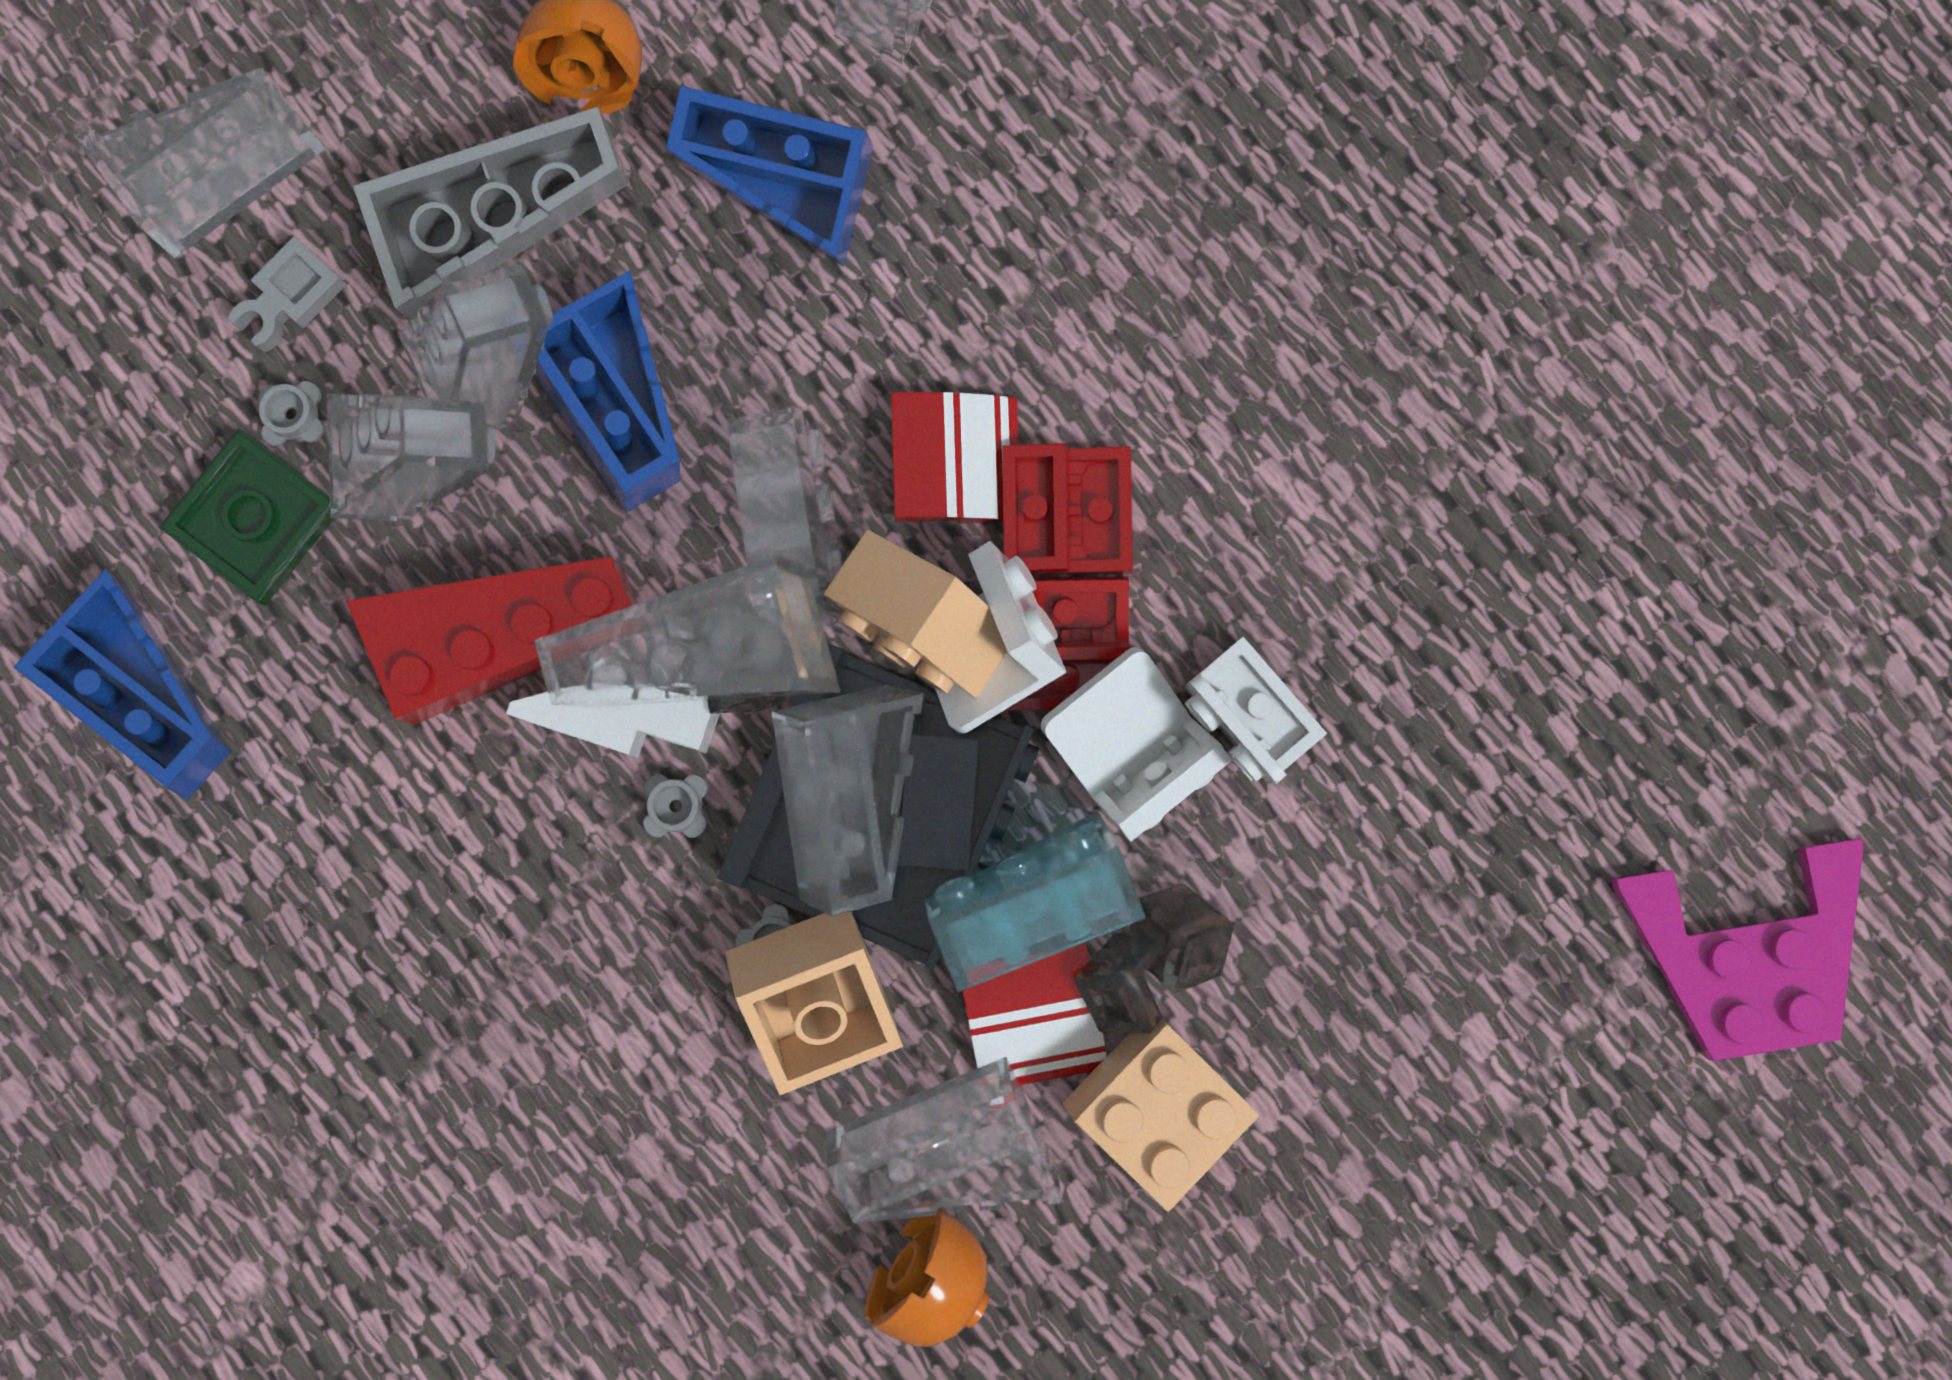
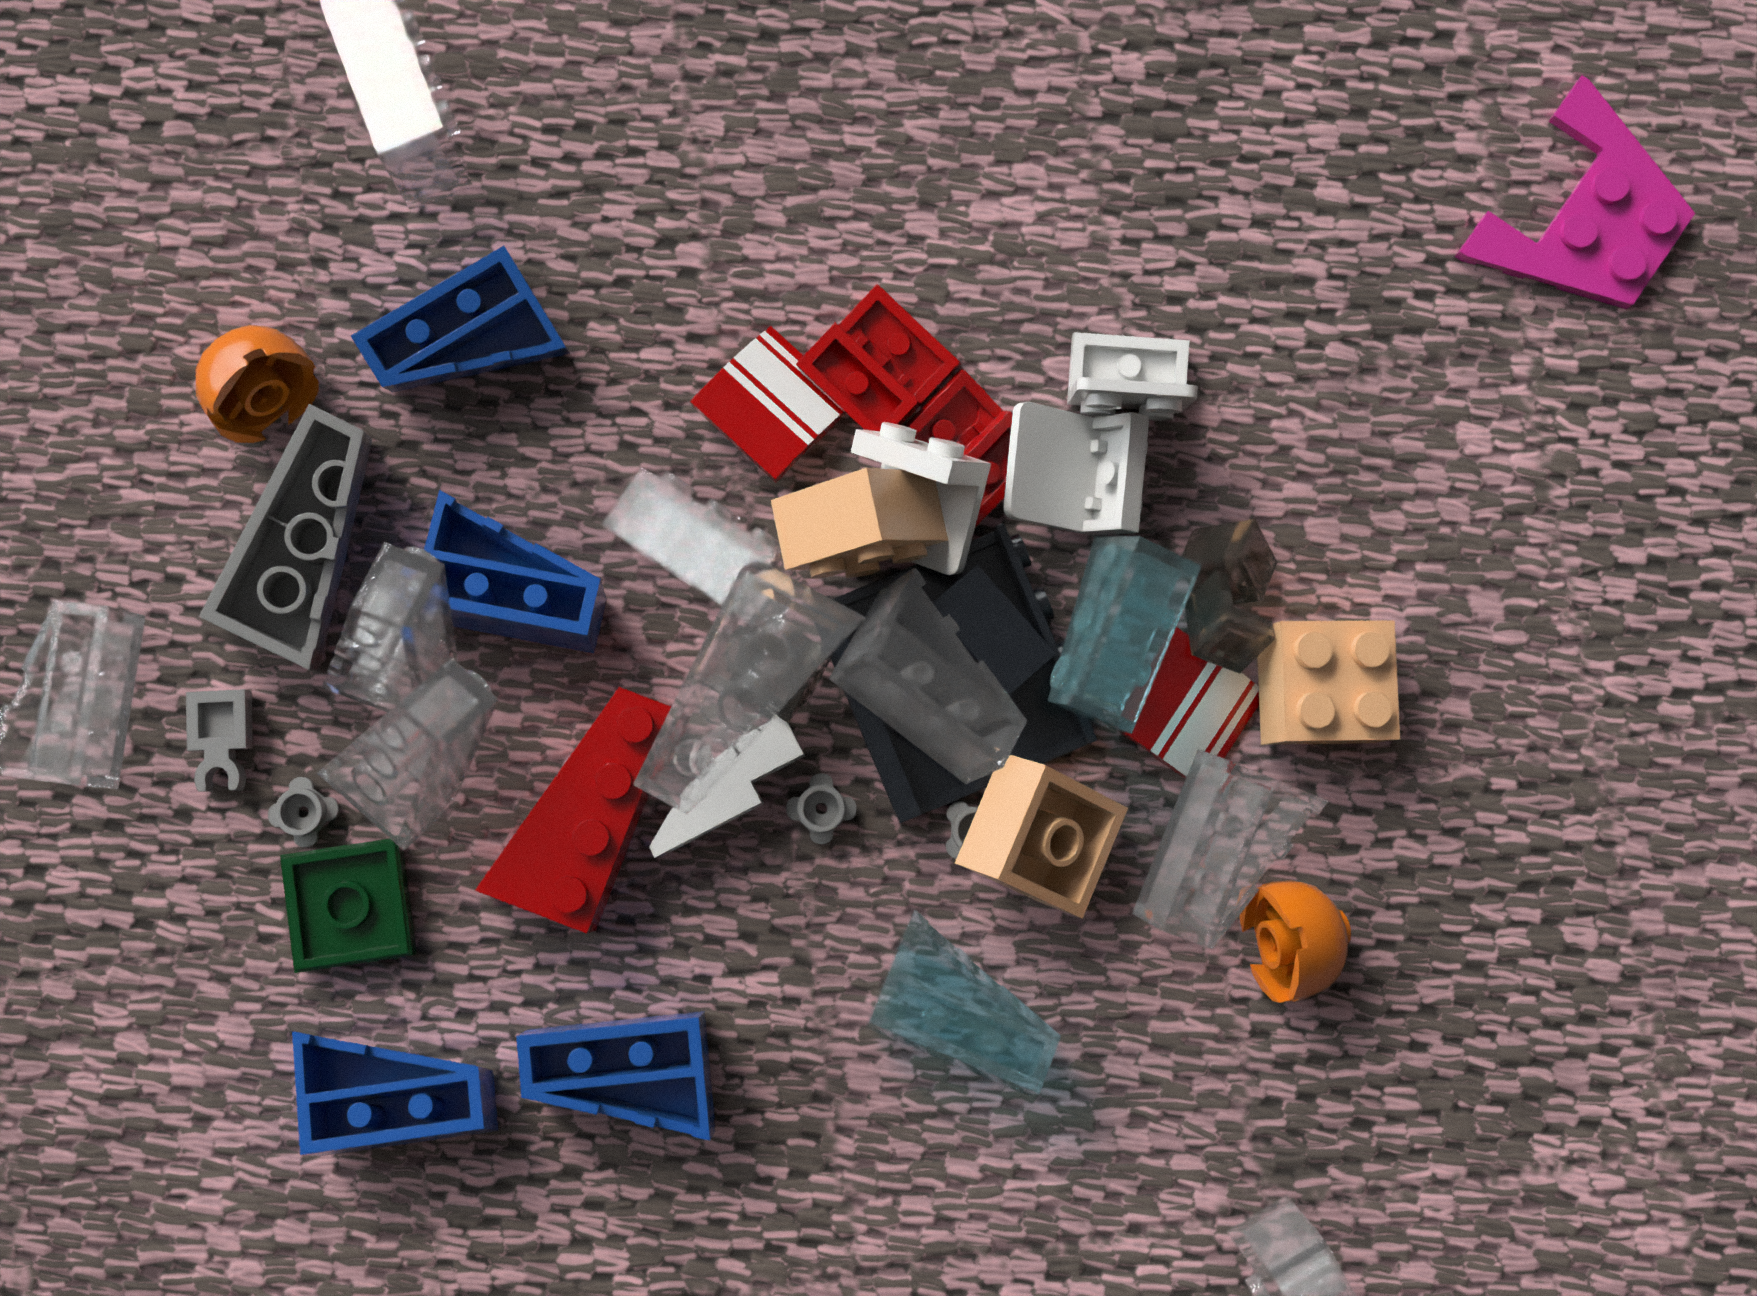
camera: 45 degrees left, 0 degrees up
(324, 853) = (624, 1069): none -> blue wedge
(611, 1070) = (959, 1013): none -> clear light blue wedge

